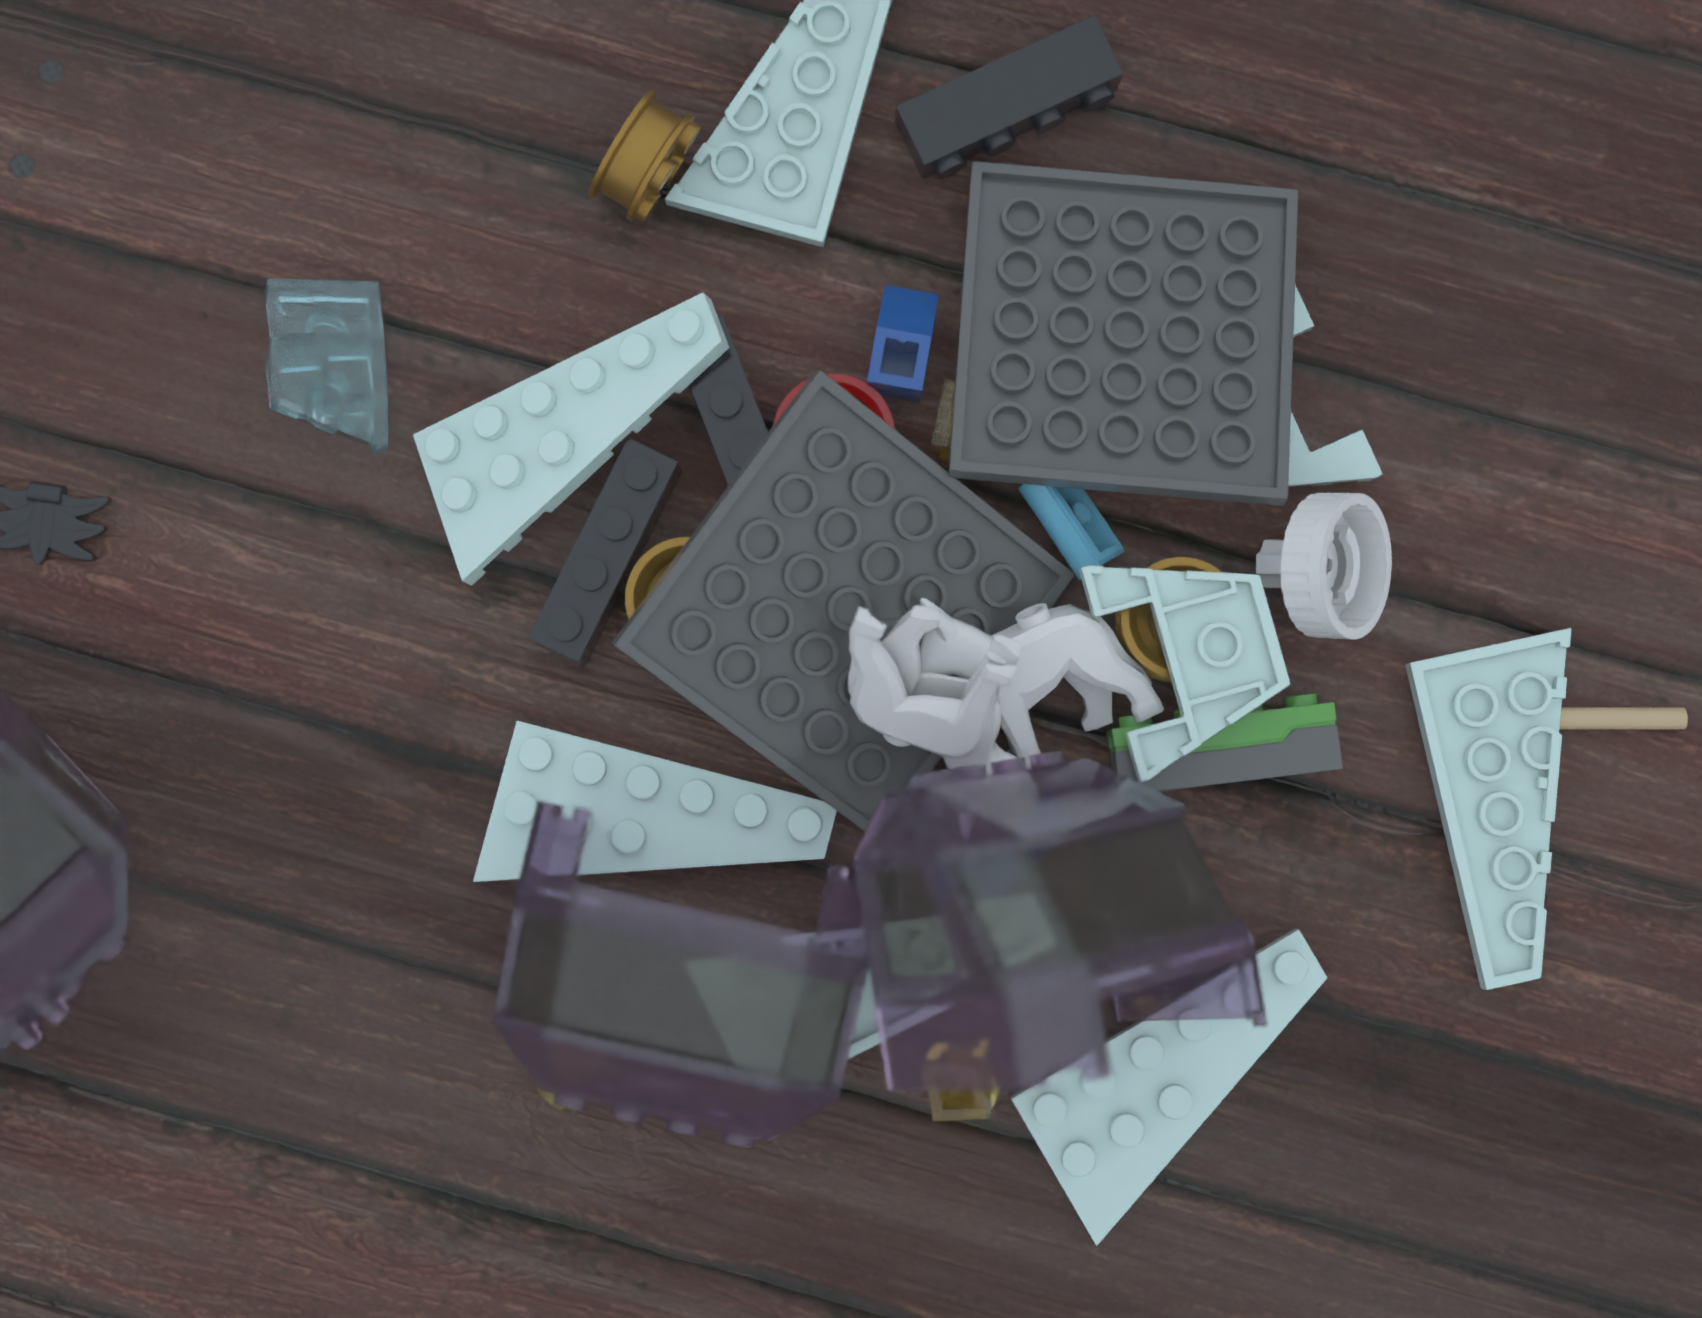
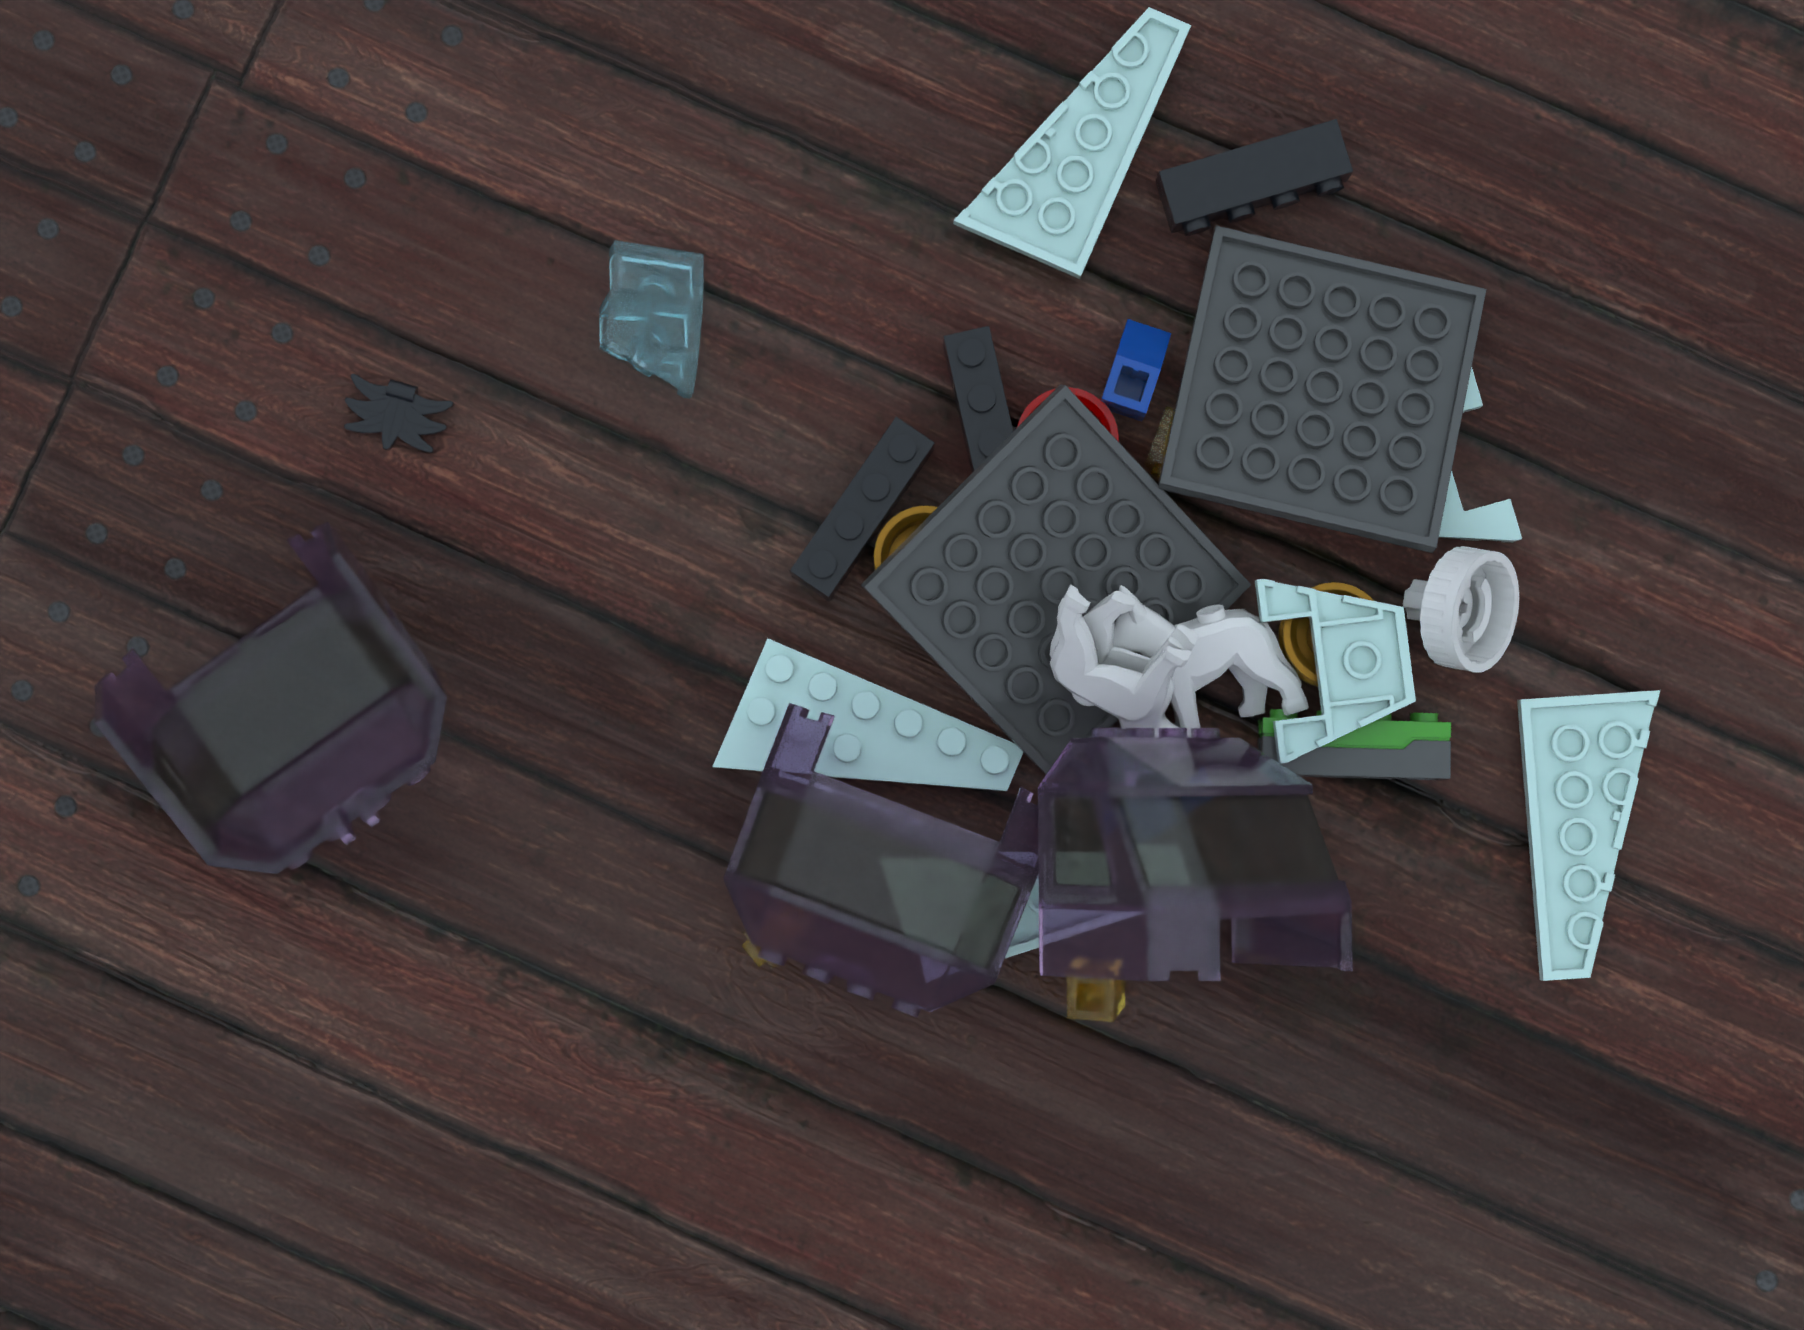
camera: 10 degrees right, 0 degrees up
(546, 435) = (824, 406): light aqua wing -> none
(644, 157) = (943, 184): pearl gold wheel -> none
(1073, 525) = (1256, 543): medium azure brick -> none
(1166, 1079) = (1236, 1031): light aqua wing -> none
(1623, 718) = (1693, 772): tan piece -> none

